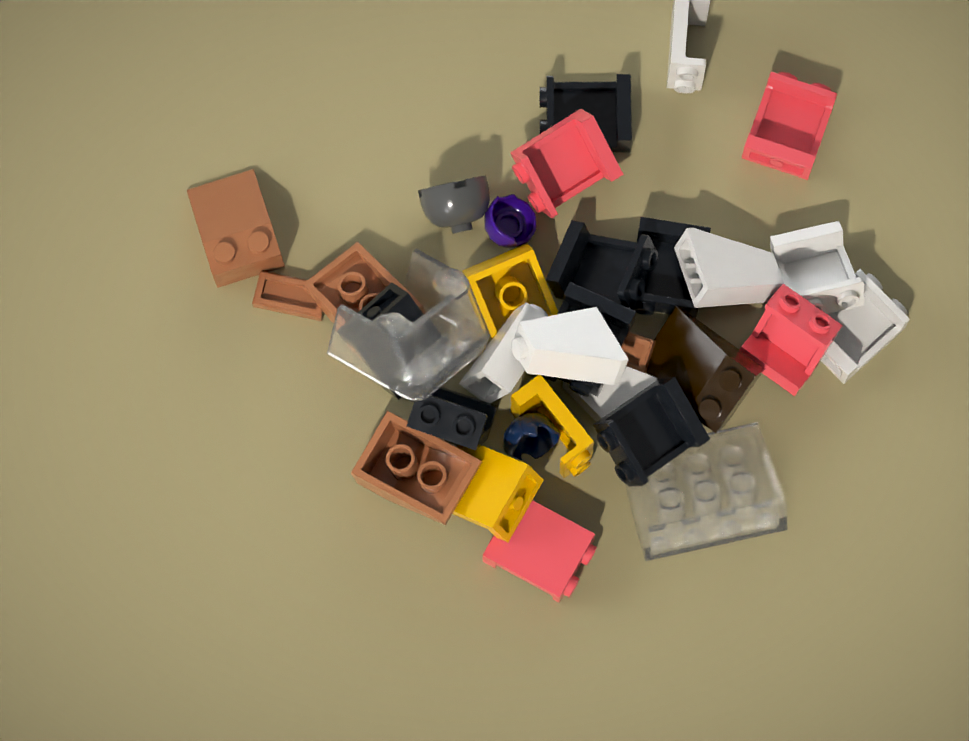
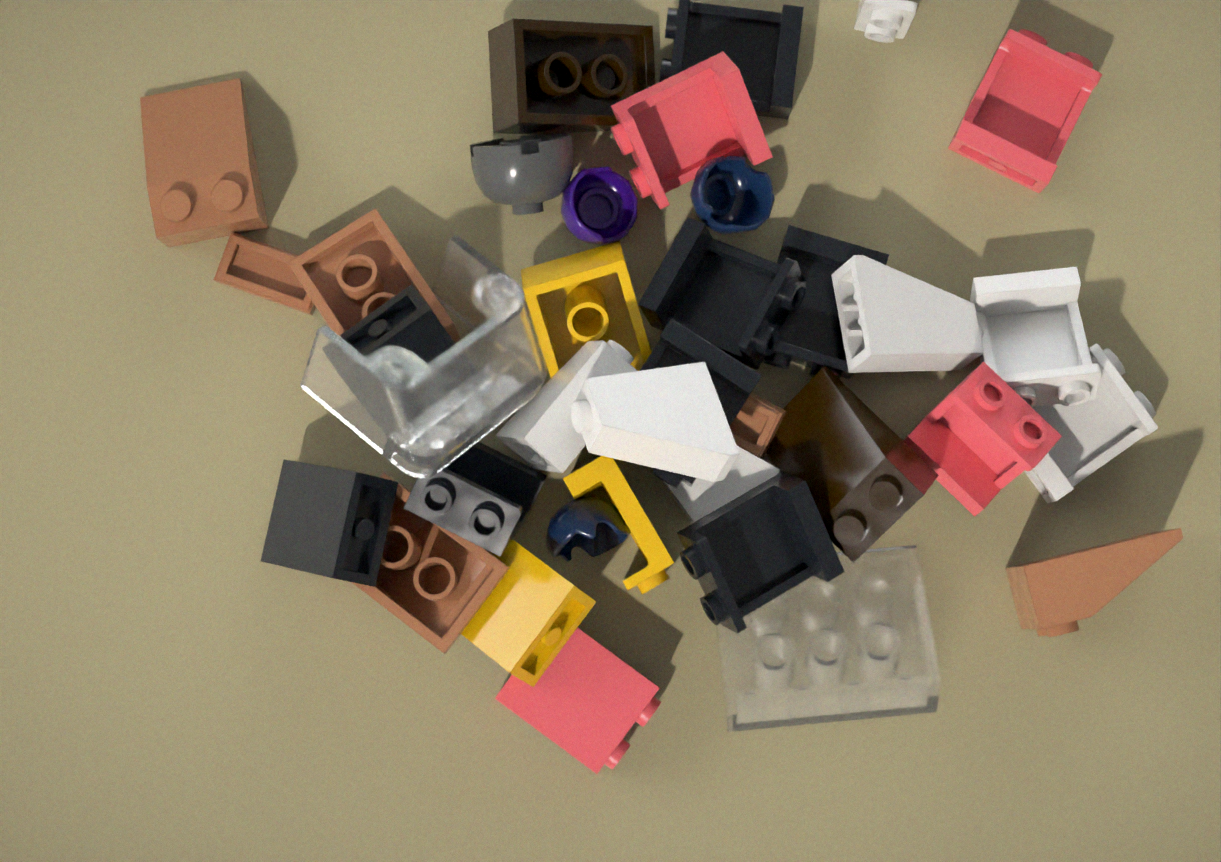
camera: 10 degrees right, 10 degrees up
(354, 447) = (329, 522): none -> black panel
(474, 138) = (565, 74): none -> dark brown slope
(599, 203) = (731, 195): none -> dark blue hair
(864, 428) = (1078, 584): none -> nougat slope

